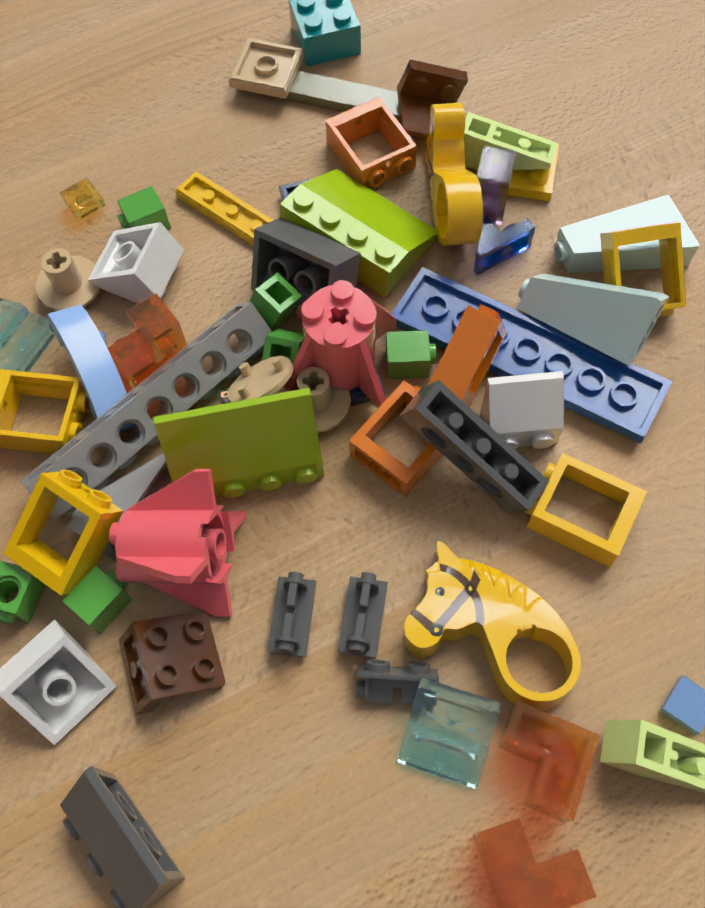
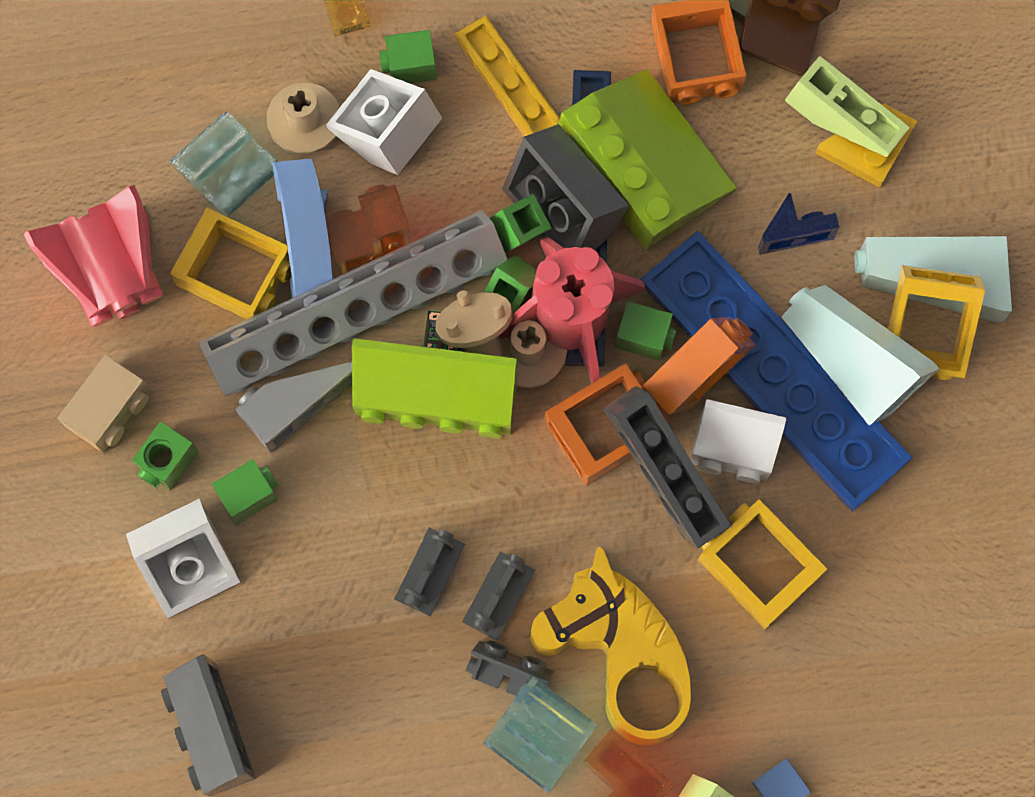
camera: 15 degrees right, 10 degrees up
(43, 561) = (204, 437): yellow window -> none
(170, 659) = (299, 574): reddish brown bracket -> none
(179, 543) = (342, 465): coral brick -> none
(453, 189) = (764, 142): yellow animal -> none
(495, 180) = (812, 159): brick -> none

